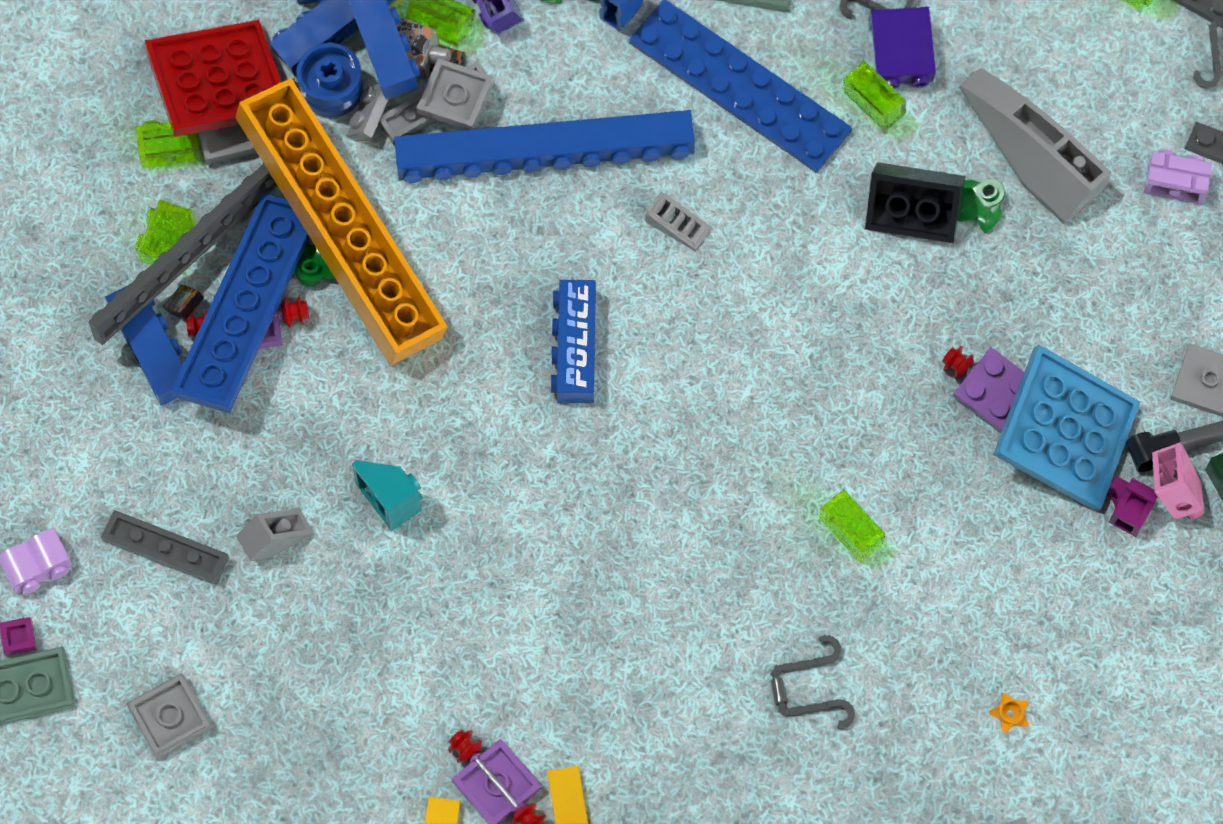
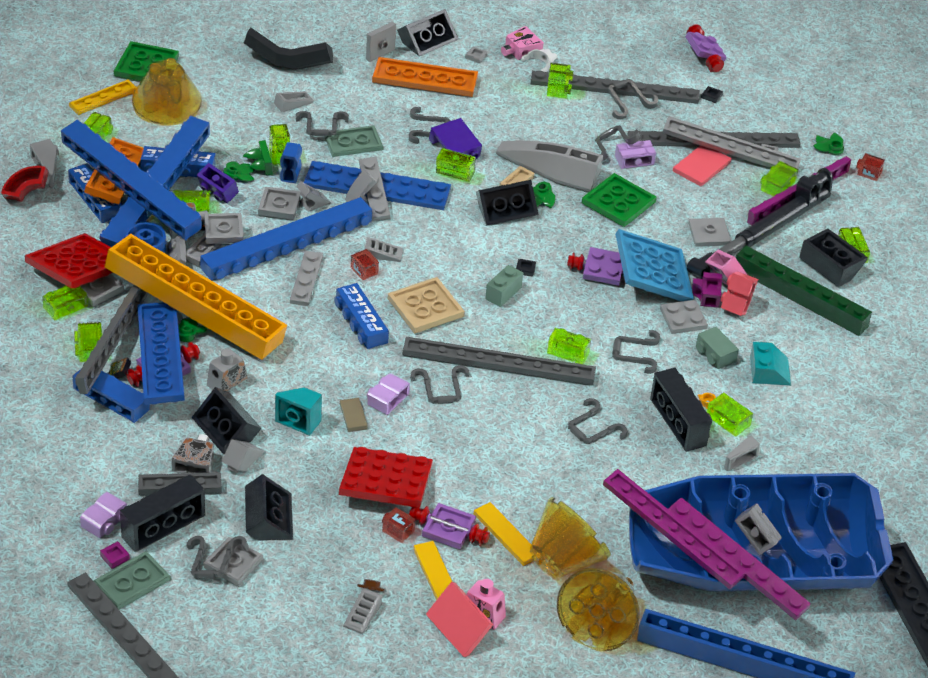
camera: 30 degrees left, 25 degrees down
(105, 599) = (162, 513): none -> black brick
(136, 678) = (212, 574): none -> dark grey piece
(207, 509) = (194, 456): none -> light grey torso
(259, 650) = (268, 510): none -> black slope
(282, 461) = (225, 420): none -> black slope
(323, 374) = (226, 371): none -> light grey torso
(424, 752) = (398, 524): none -> clear red brick
(450, 662) = (386, 477): none -> red plate
(470, 520) = (353, 414): none -> dark tan tile
(537, 230) = (306, 278): none -> light grey plate
(537, 505) = (388, 393): none -> lavender brick
(571, 67) = (279, 203): none -> light grey plate
(618, 545) = (442, 399): none -> dark grey piece
(625, 75) = (311, 198): none -> light grey slope
(632, 241) = (364, 264): none -> clear red brick
(684, 355) = (425, 305): none -> tan plate
(699, 92) = (360, 187): none -> light grey slope
(723, 97) = (376, 195): none -> light grey plate
(736, 509) = (499, 360): none -> dark grey plate
(818, 368) = (504, 285): none -> sand green brick
(877, 339) = (526, 266): none -> black tile
(930, 552) = (617, 345): none -> dark grey piece
(946, 724) = (681, 409): none -> black brick
(962, 154) = (518, 175): none -> tan tile
(1024, 757) = (729, 414): none -> clear neon green brick
(1067, 535) = (683, 316): none -> light grey plate
(1078, 621) = (716, 348): none -> sand green brick
(1099, 260) = (619, 200): none -> green plate
(1144, 689) = (769, 365): none -> teal slope
(1169, 536) = (739, 293): none -> coral piece
(1177, 158) = (629, 140): none -> dark grey piece

